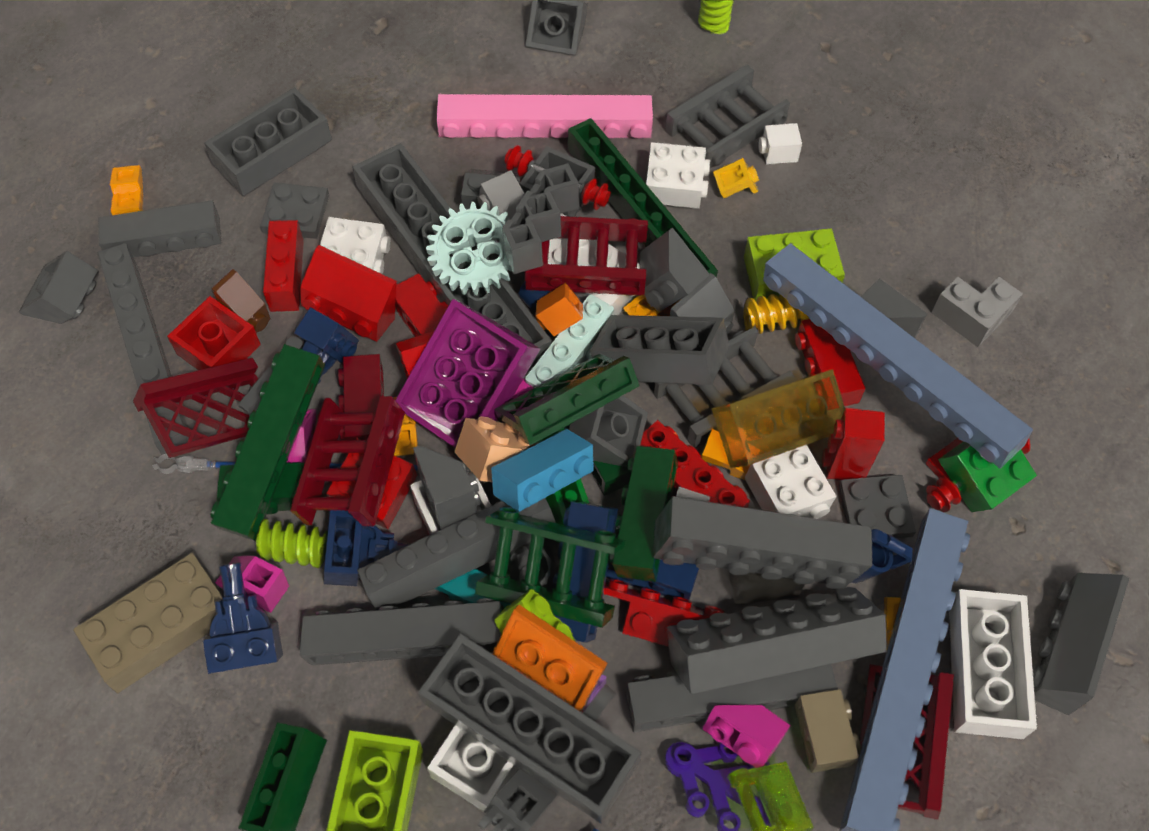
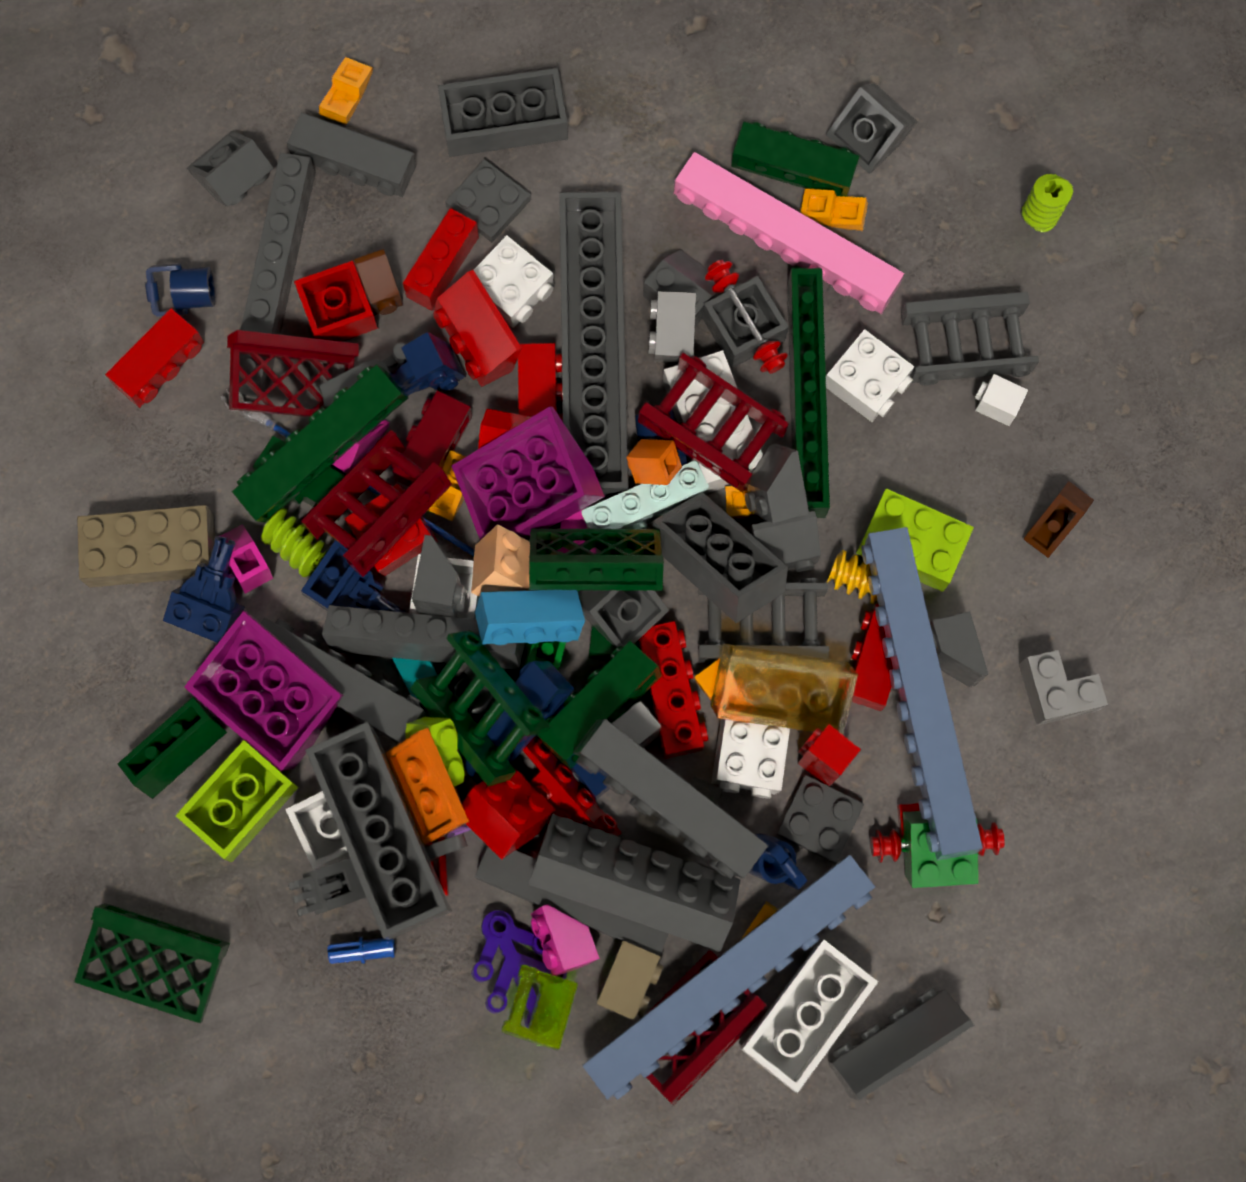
camera: 30 degrees right, 15 degrees up
(73, 466) = (155, 358): none -> red brick
(74, 393) = (187, 286): none -> dark blue piece
(343, 676) = (265, 692): none -> magenta slope
(467, 225) = (620, 328): light aqua gear -> none
(517, 69) = (794, 159): none -> dark green brick
(539, 217) = (680, 364): dark grey brick -> none
(575, 84) = (834, 210): none -> light orange slope
(630, 649) = (506, 814): none -> red brick
(736, 177) = (929, 413): yellow bracket -> none
(883, 198) = (1058, 519): none -> reddish brown slope

